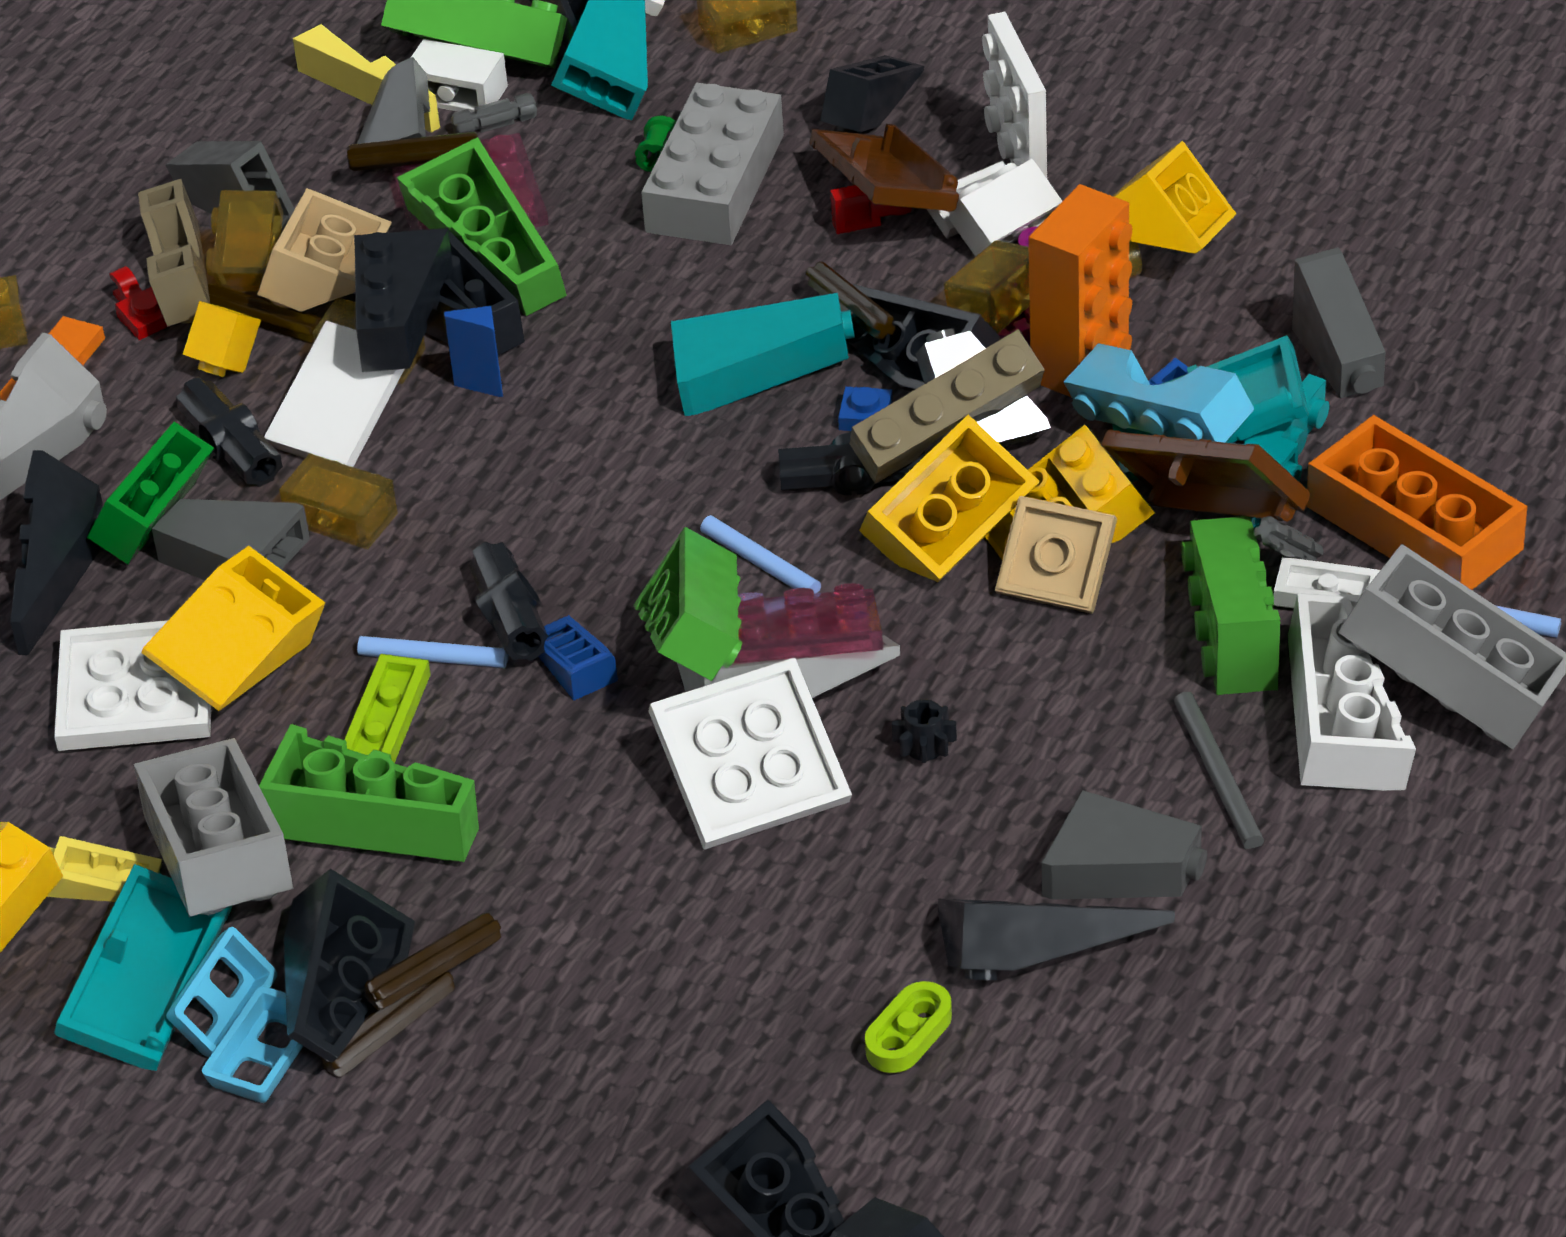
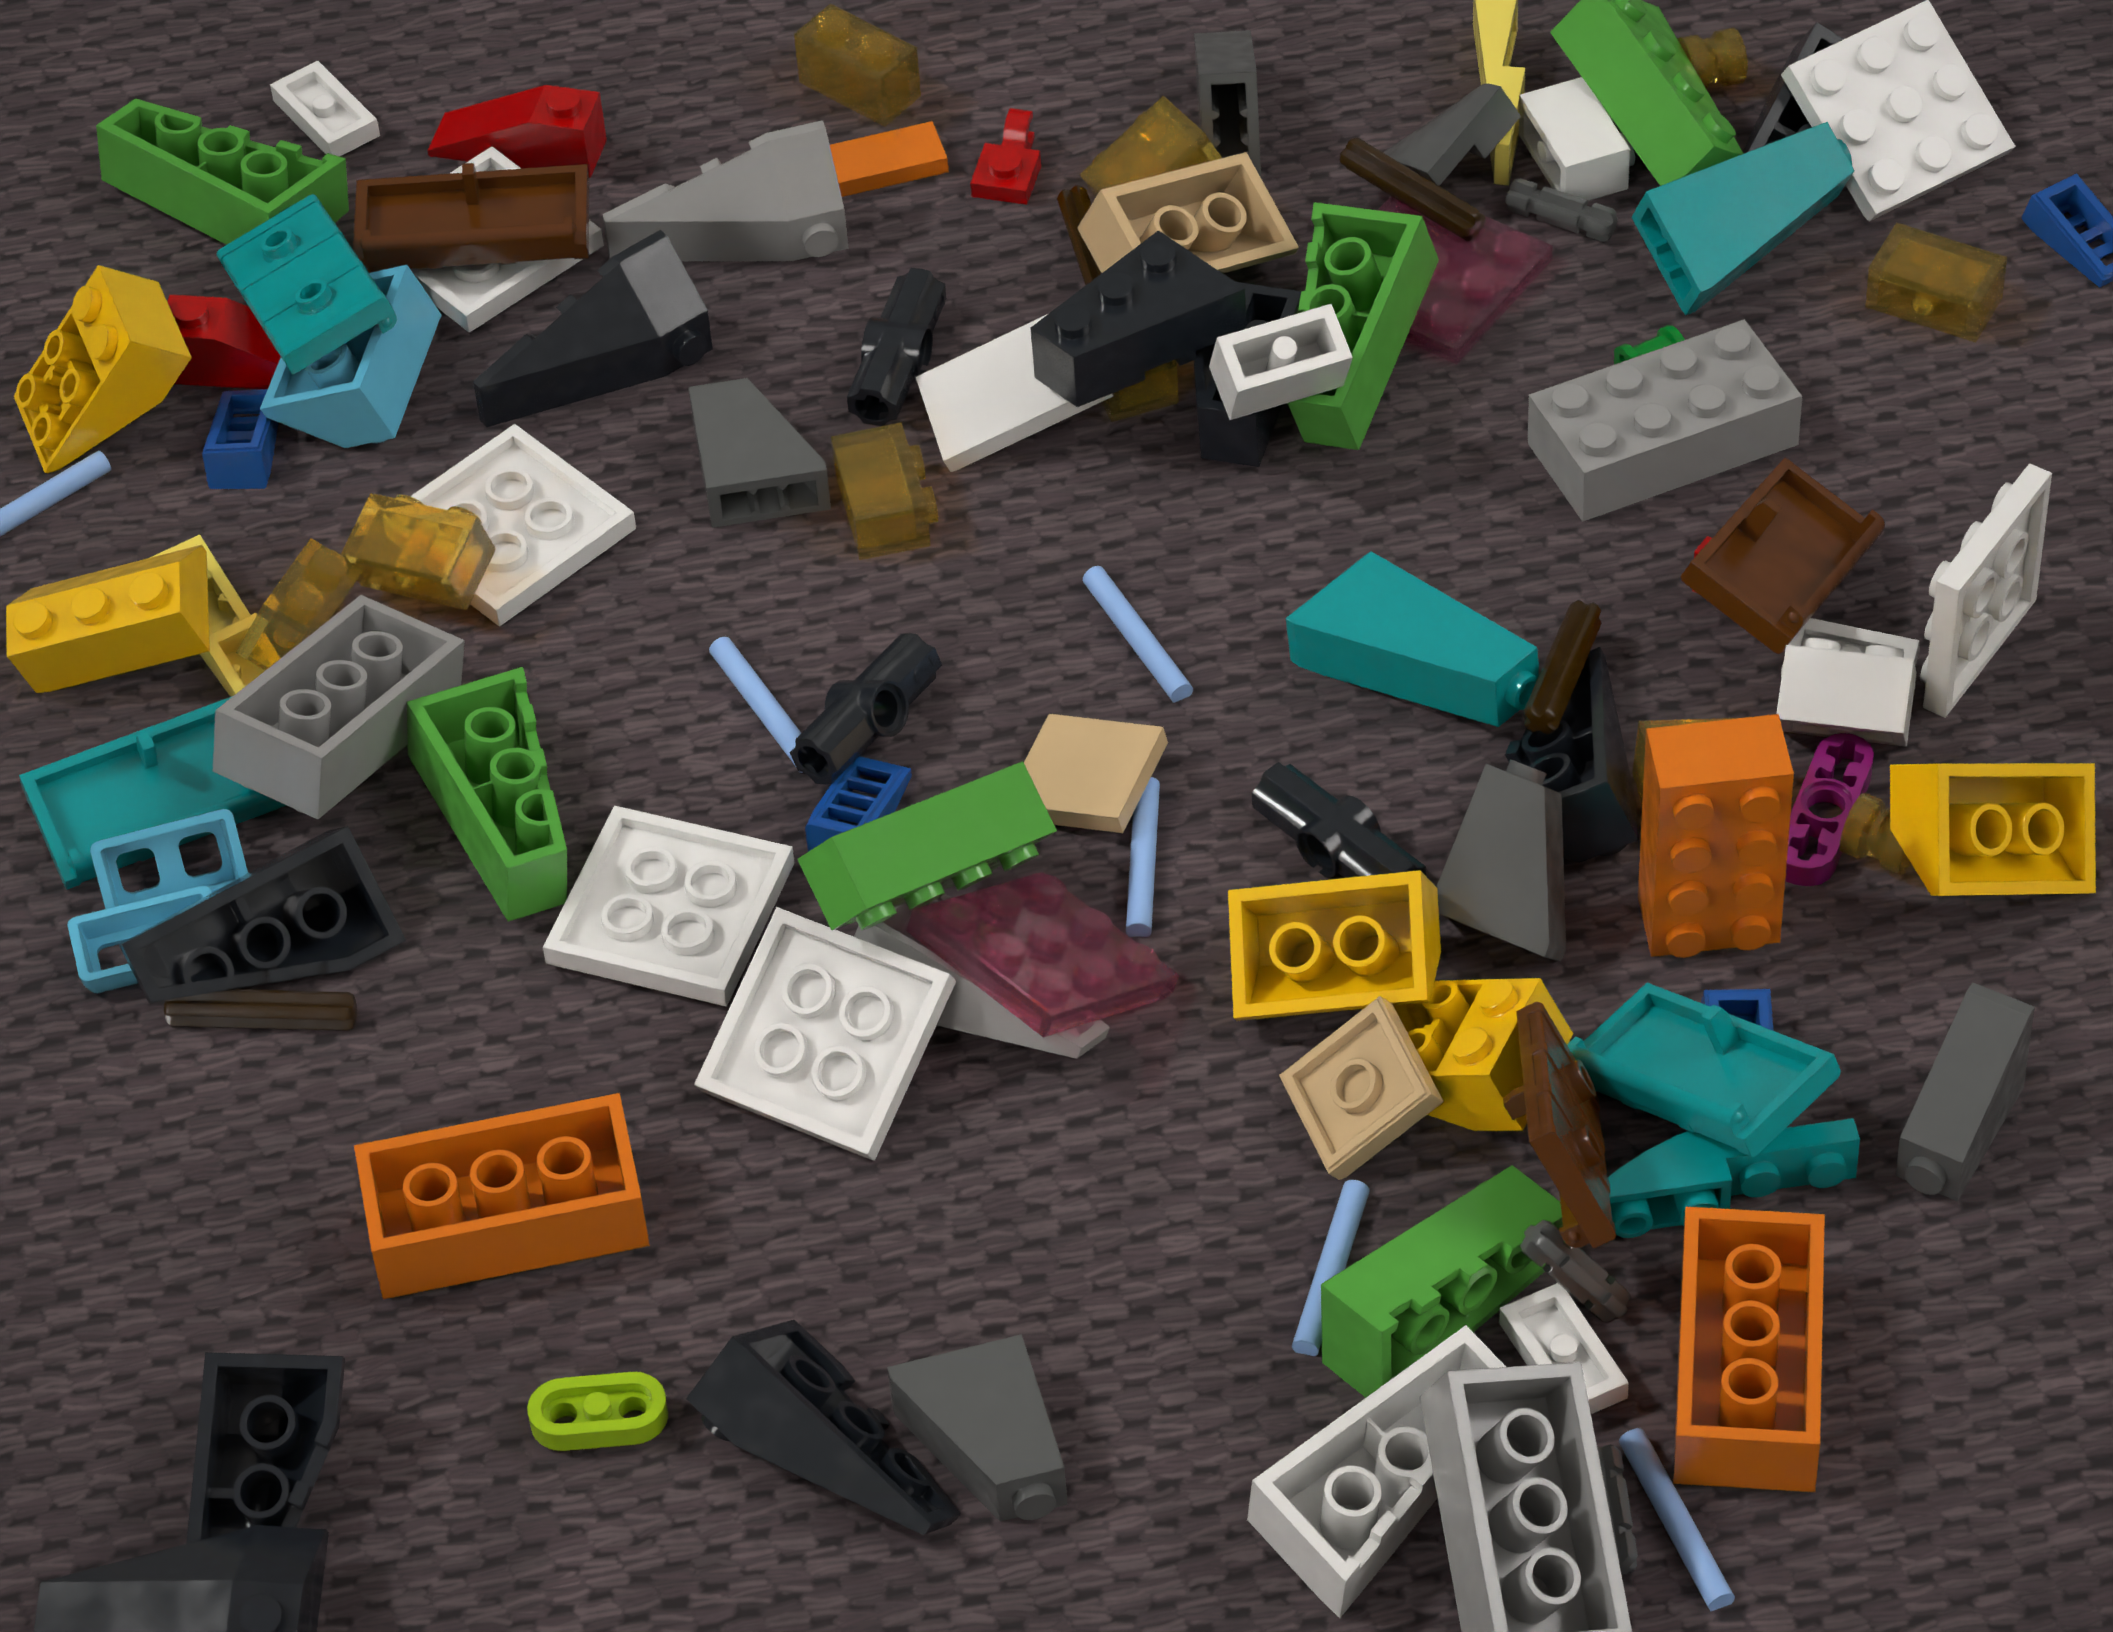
camera: 50 degrees right, 5 degrees up
(96, 807) = (299, 604): none -> clear yellow brick
(123, 722) = (419, 550): none -> clear yellow brick
(150, 492) = (758, 343): green brick -> none
(178, 263) = (1029, 162): dark tan arch -> none
(221, 339) = (1004, 247): yellow brick -> none
(236, 628) = (609, 541): yellow slope -> none
(388, 705) = (634, 729): lime plate -> none
(432, 961) = (341, 986): dark brown axle -> none
(474, 350) = (1173, 437): blue slope -> none
(513, 253) = (1280, 361): none -> white brick
(548, 778) = (669, 905): none -> white plate
(586, 463) = (1137, 634): none -> light blue bar
(651, 532) = (1093, 769): none -> tan tile
(698, 973) = (501, 1196): none -> orange brick
(860, 404) = (1438, 792): blue plate -> none
(866, 92) = (1920, 460): black slope -> none
(918, 419) = (1469, 847): dark tan arch -> none
(924, 730) = (1008, 1151): black gear -> none
(1156, 649) = (1331, 1262): none -> light blue bar
(1196, 406) = (1636, 1040): medium azure arch -> none
(1218, 771) = (1204, 1435): dark grey bar -> none

